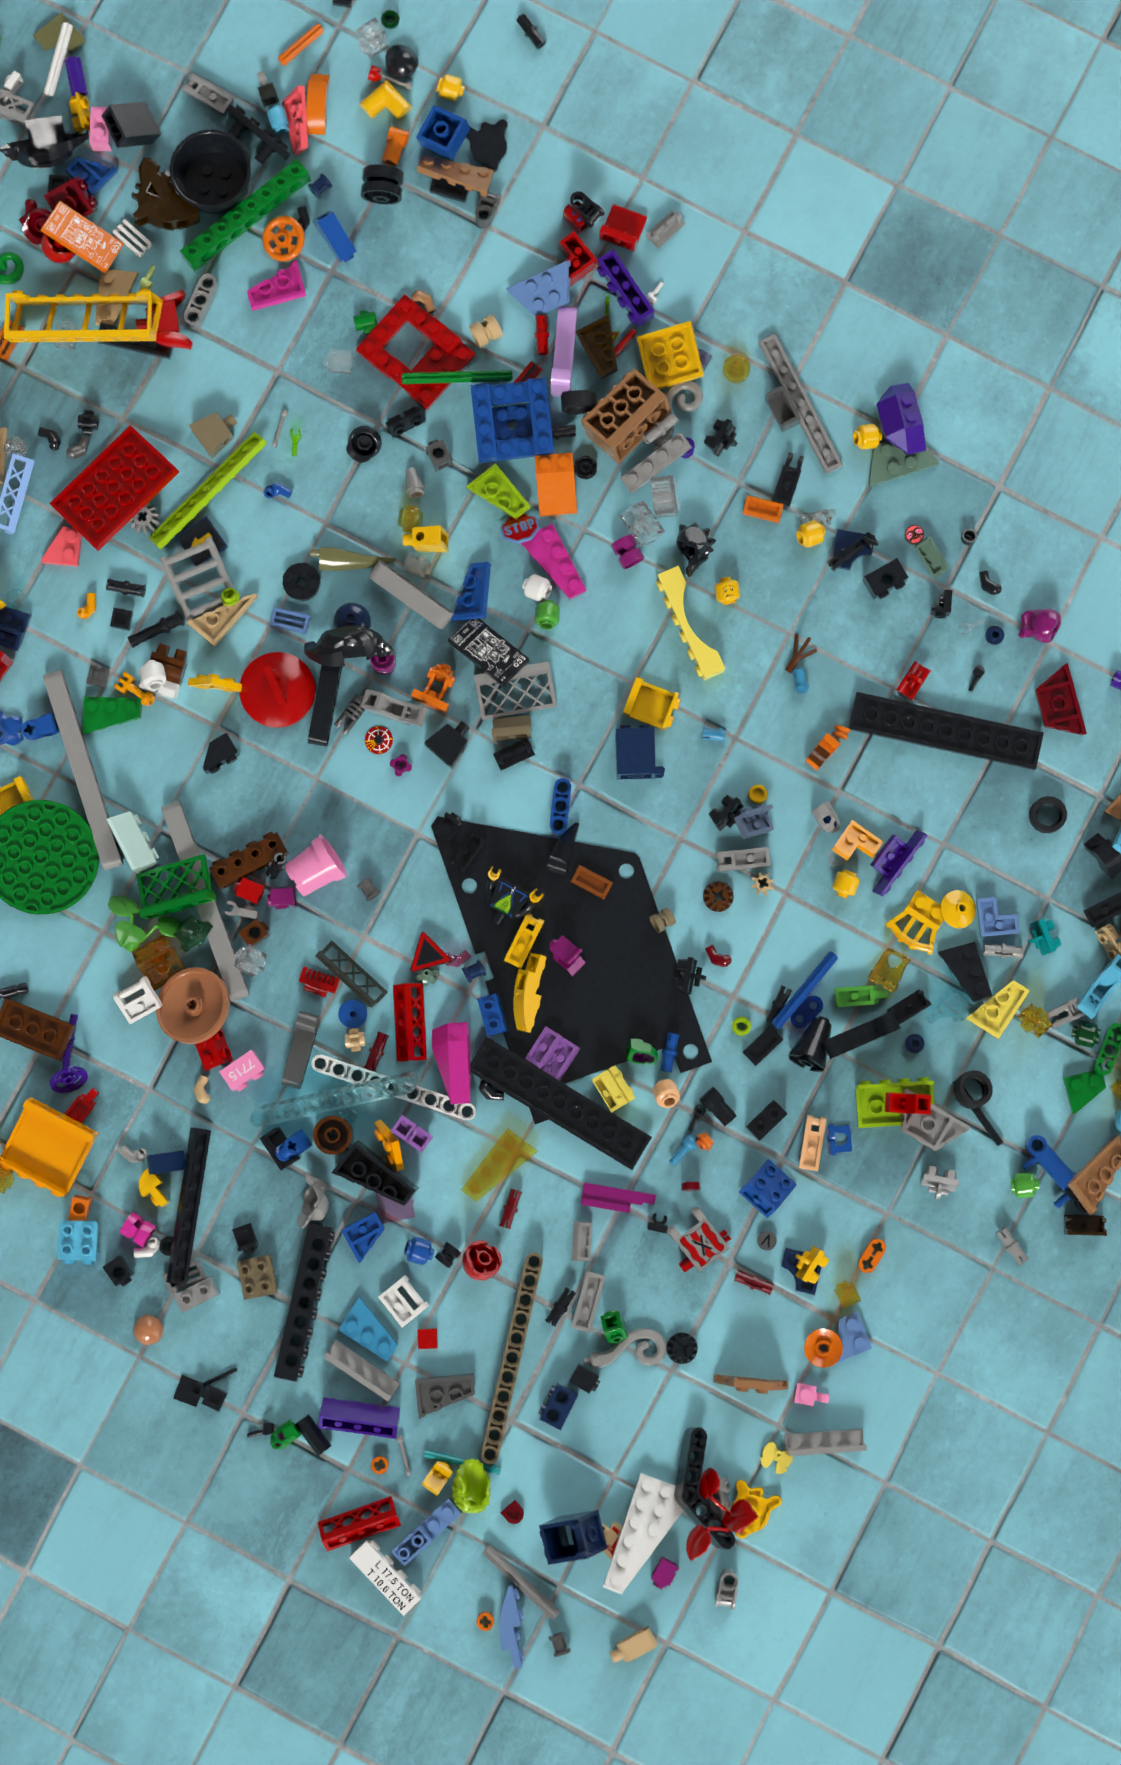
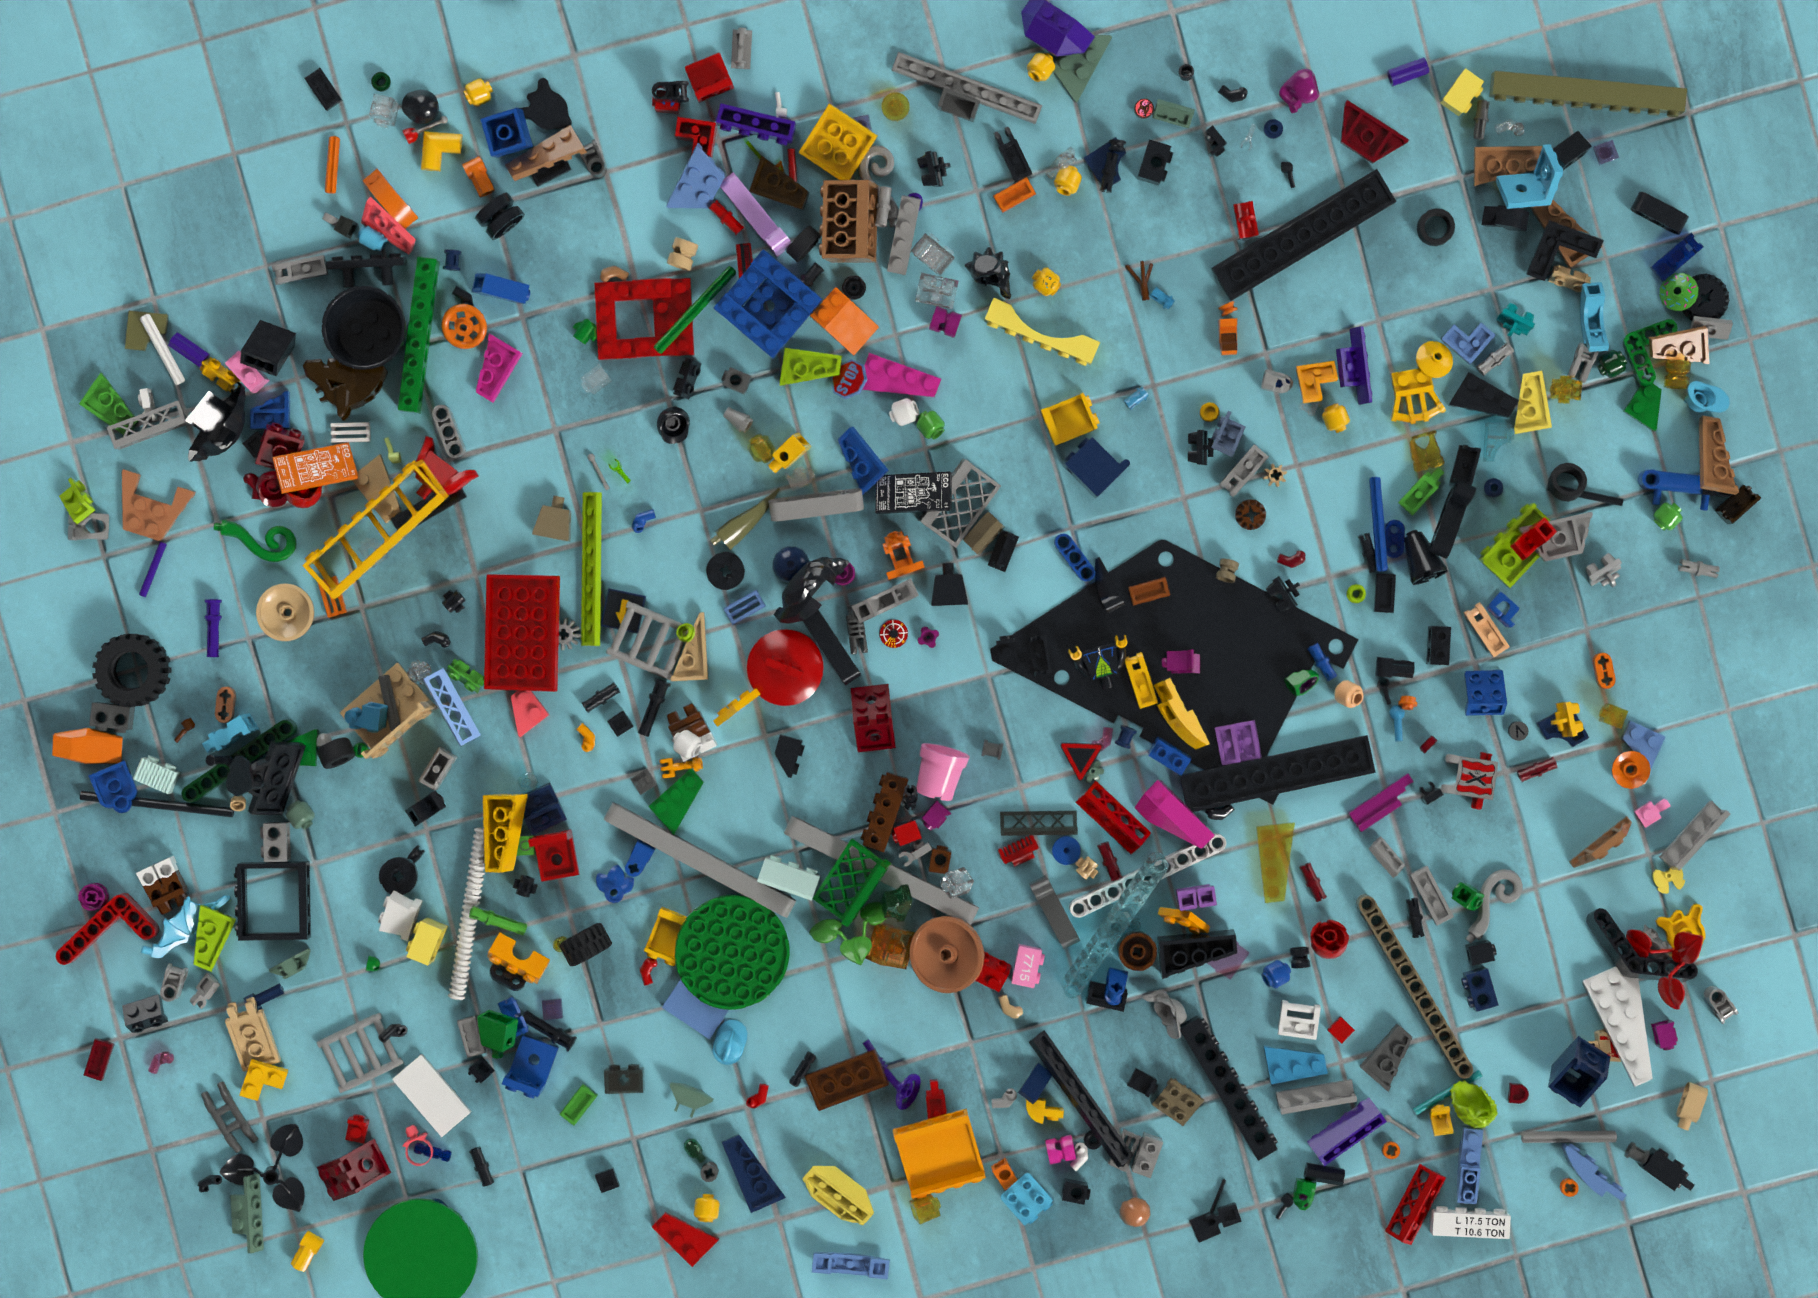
camera: 45 degrees left, 5 degrees up
(43, 475) = (470, 681): none -> bright green hinge
(79, 450) = (467, 627): flat silver arm -> none
(141, 1005) = (908, 990): white plate -> none
(304, 784) = (872, 718): none -> dark red bracket
(363, 1234) = (1224, 1000): blue wing -> none
(569, 1678) = (1666, 1171): none -> black hinge
(613, 1088) = (1307, 726): light yellow brick -> none
(685, 1339) = (1526, 856): black gear -> none

